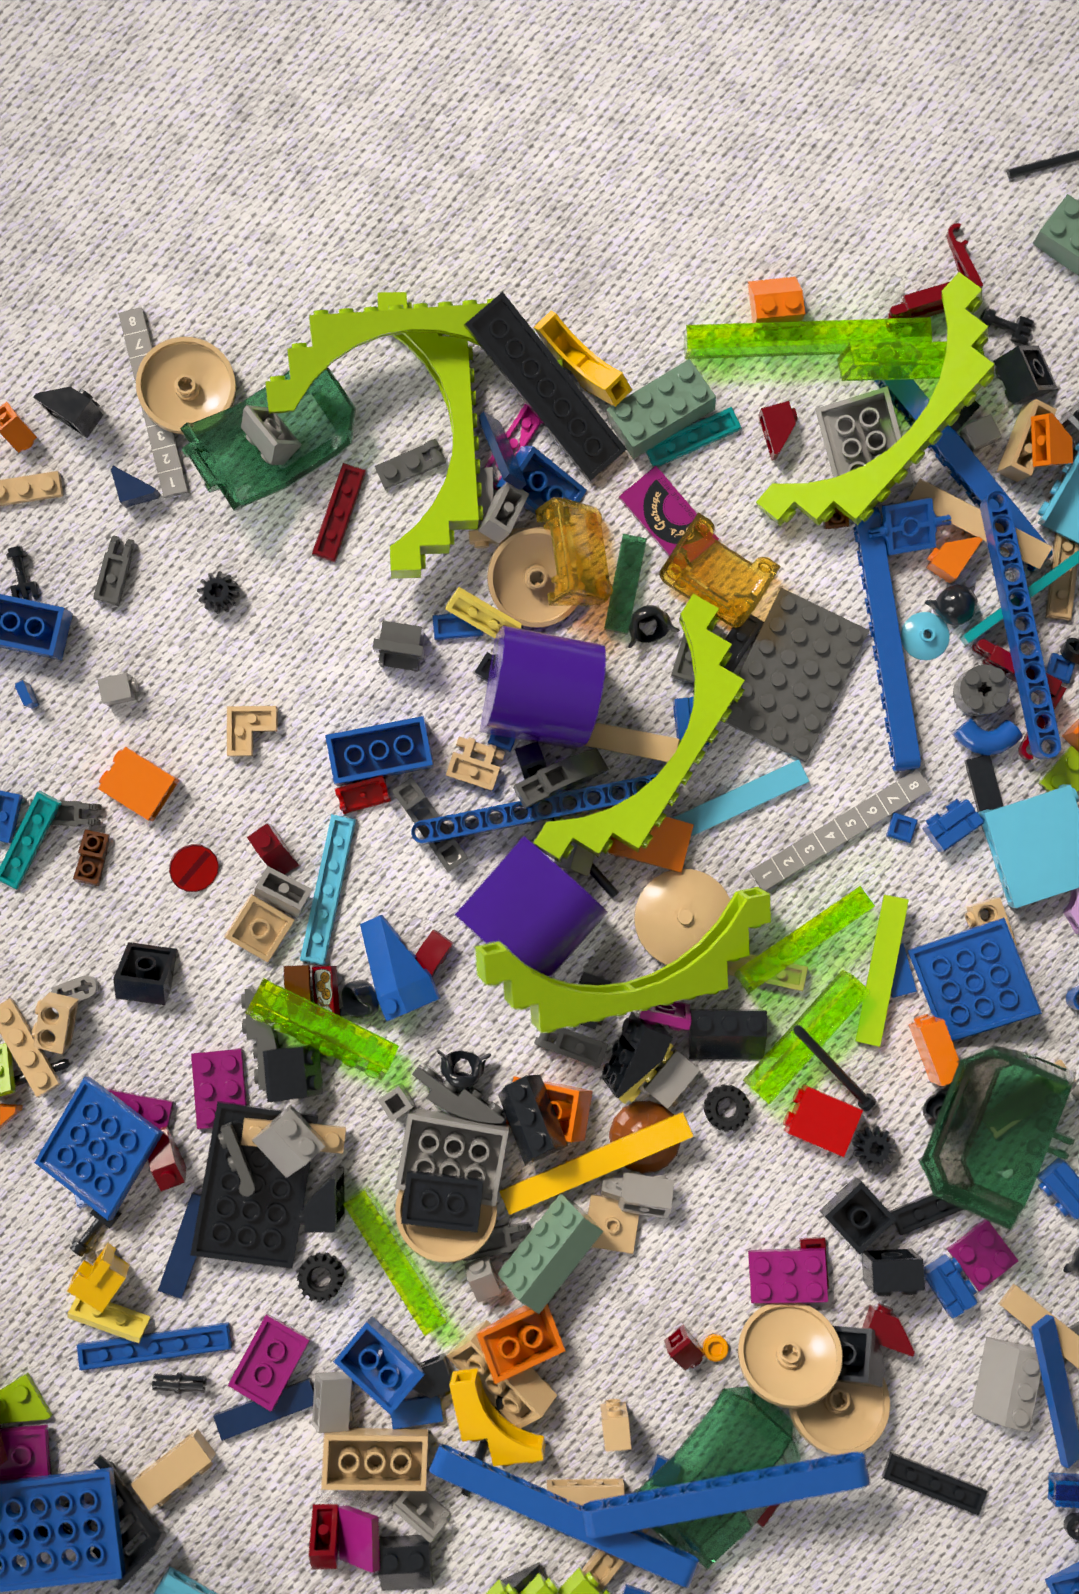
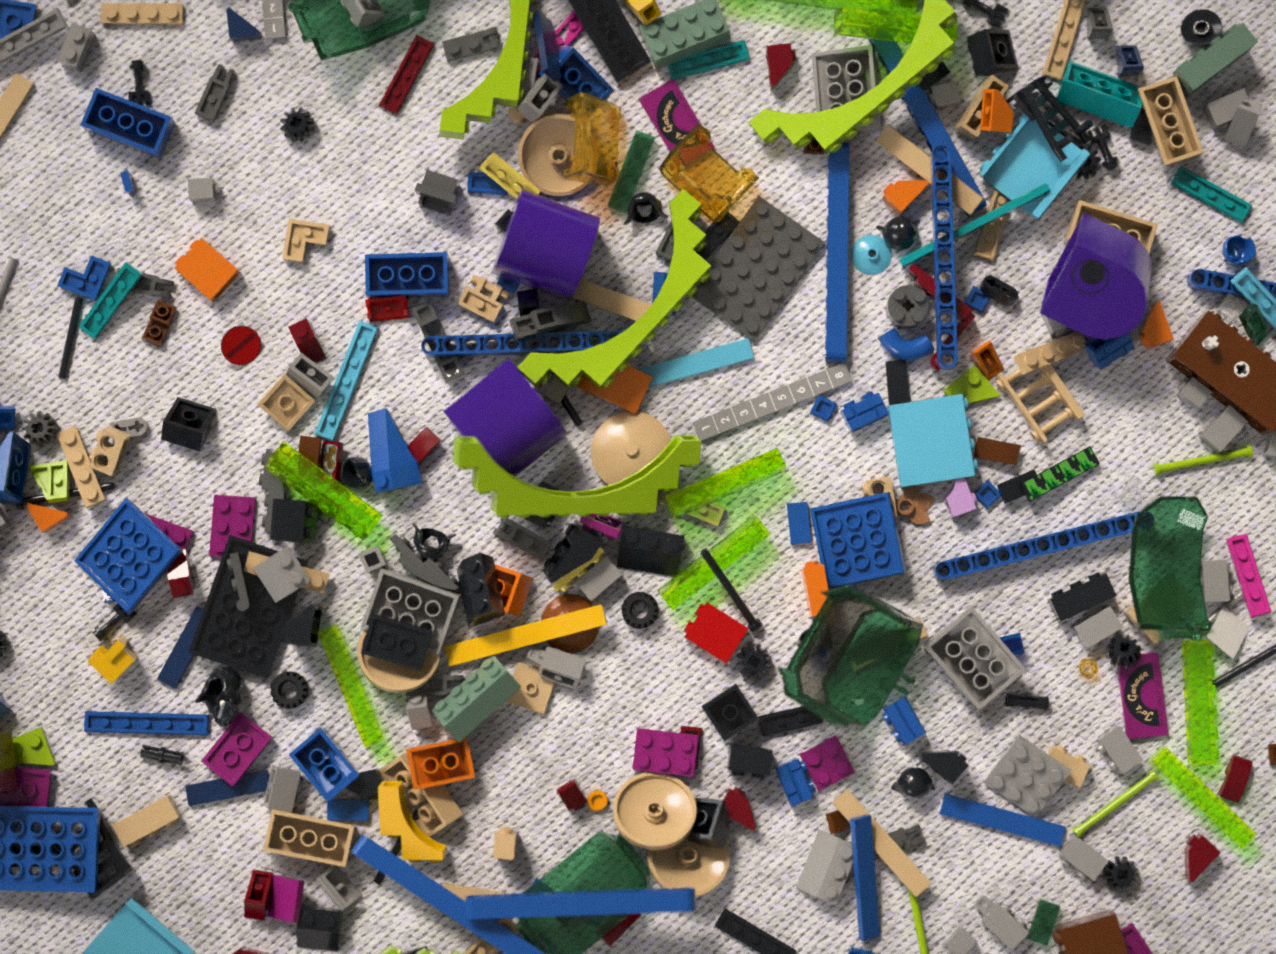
camera: 15 degrees right, 0 degrees up
(113, 1319) = (114, 693): light yellow plate -> none
(240, 1299) = (222, 695): none -> black hair
(882, 970) = (785, 520): lime tile -> none
(909, 526) = (871, 162): blue plate -> none
(1008, 1326) = (836, 822): none -> reddish brown tile
(1033, 925) = (917, 504): none -> medium nougat plate

